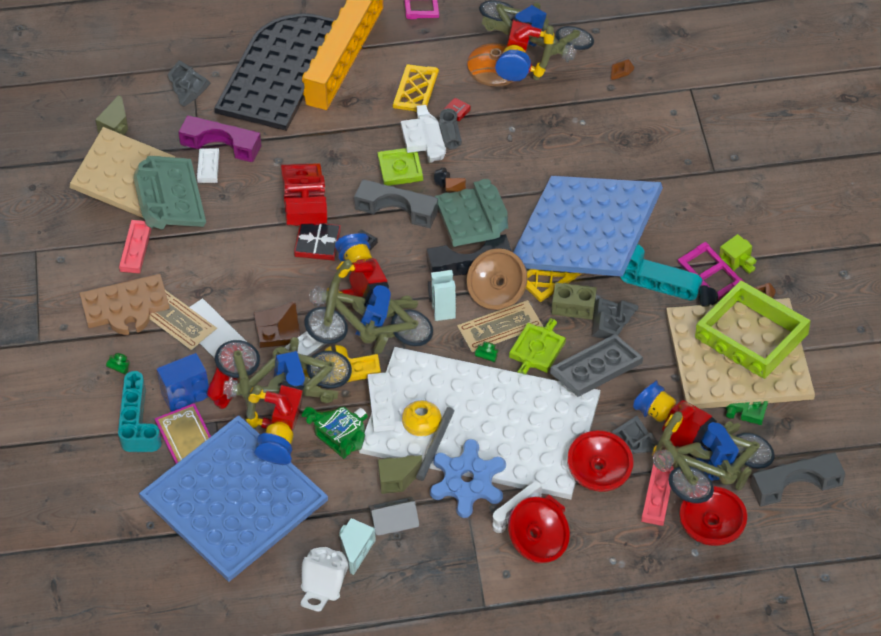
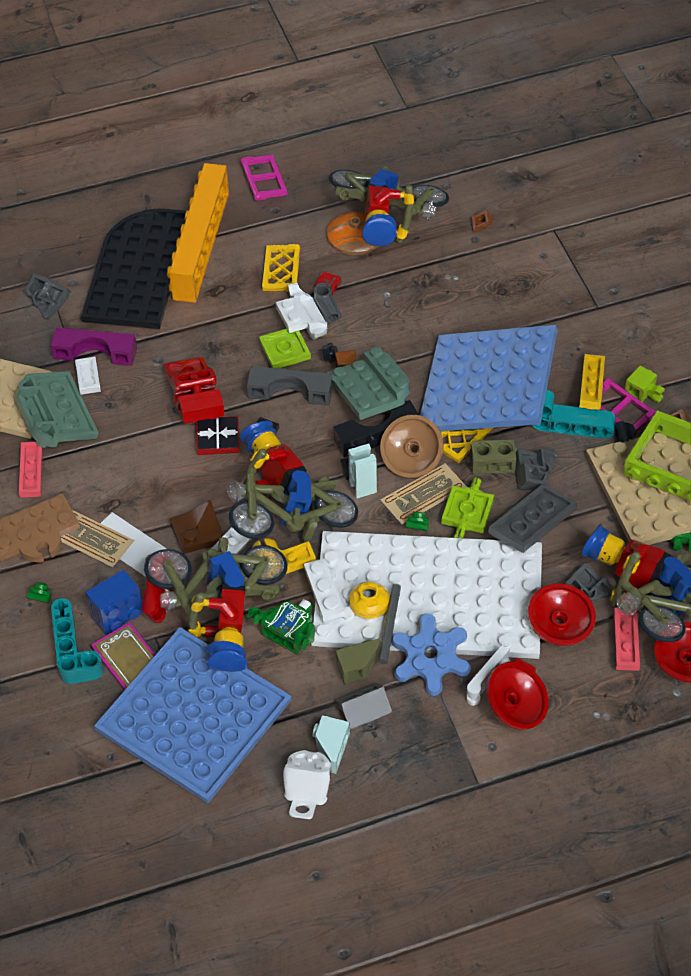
camera: 10 degrees left, 0 degrees up
(687, 243) = (592, 382): none -> yellow plate

